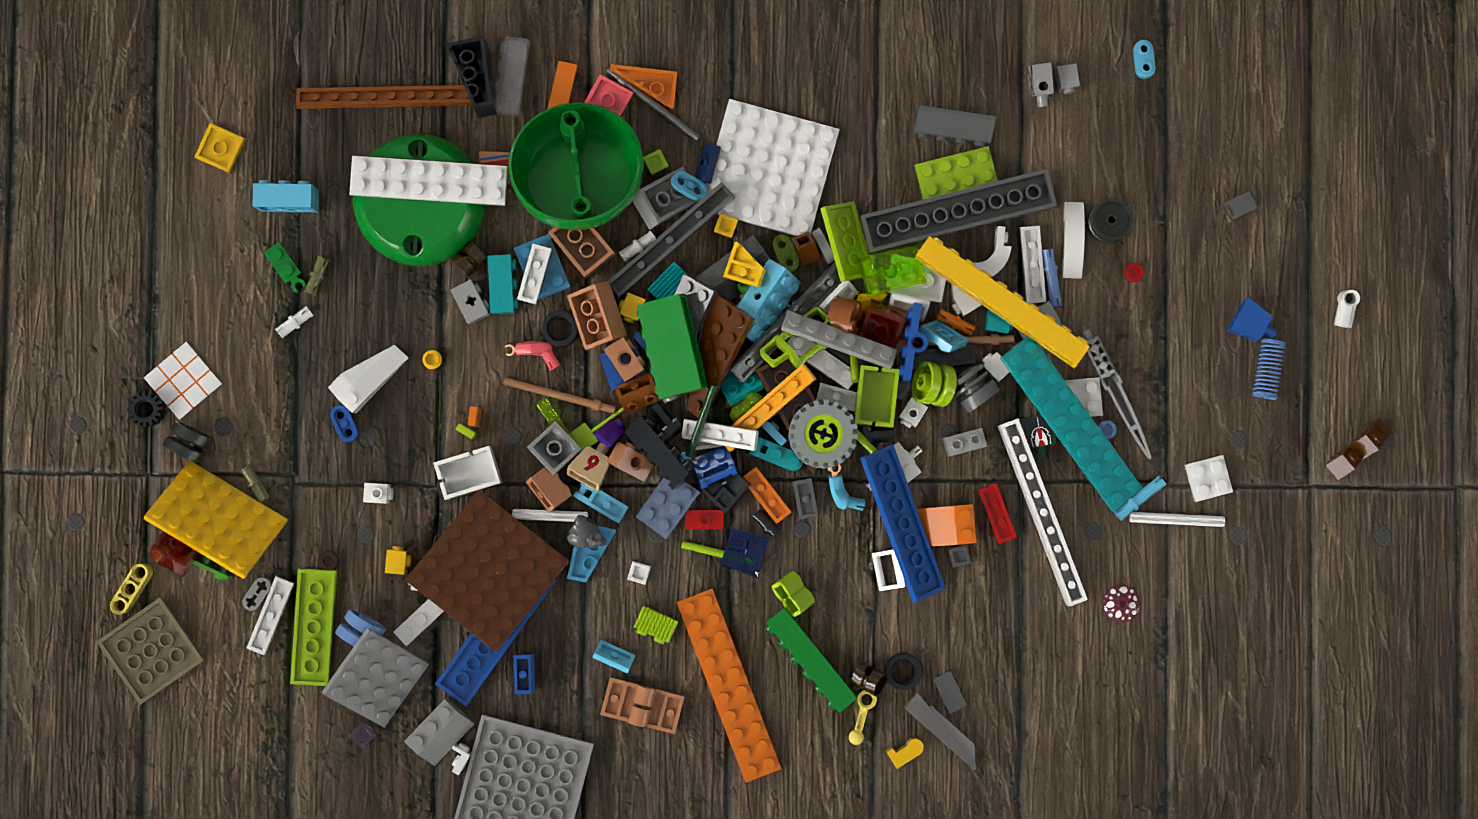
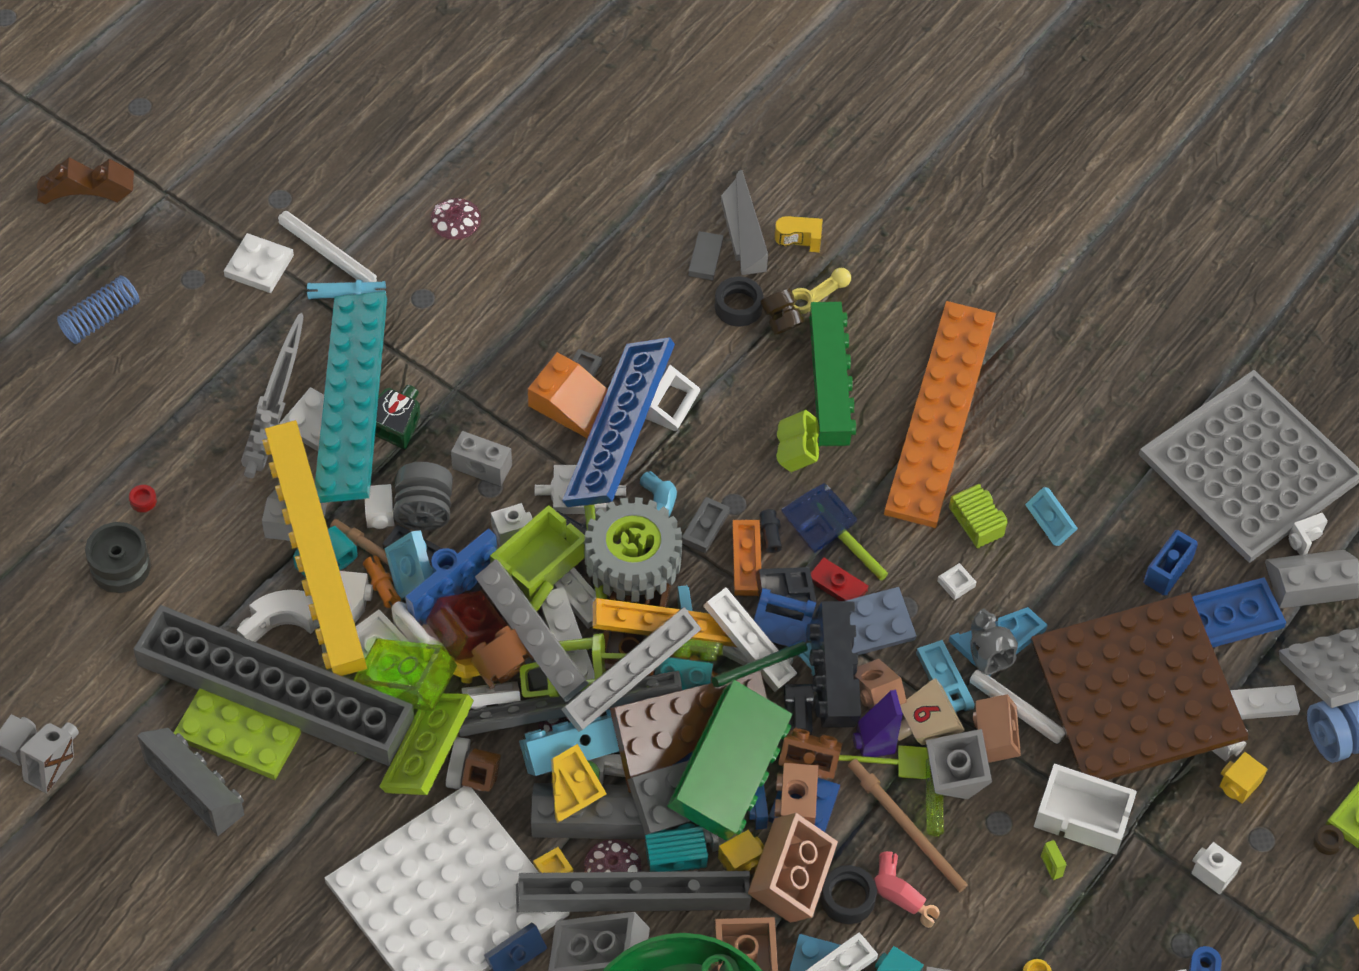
camera: 145 degrees left, 30 degrees down
(474, 416) = (1031, 861): orange tile -> none
(637, 246) = (679, 920): white pin -> none
(642, 705) = (1055, 451): nougat plate -> none
(688, 185) = (562, 943): medium azure plate -> none
(701, 262) = (601, 853): none -> clear pink dish
(762, 354) = (631, 669): none -> light grey plate
(777, 455) = (699, 584): teal plate -> none
(785, 253) = (508, 789): clear neon green plate -> none
(934, 383) = (460, 520): lime wheel -> none
(997, 513) = (508, 374): red plate -> none
(1032, 264) = (242, 579): white plate -> none
(1042, 512) = (459, 341): white brick -> none
(1051, 277) = (228, 560): medium blue pin -> none
(1073, 240) = (171, 573): white slope -> none
(1108, 428) = (316, 374): medium blue tile -> none
(1251, 322) = (71, 365): blue torso -> none

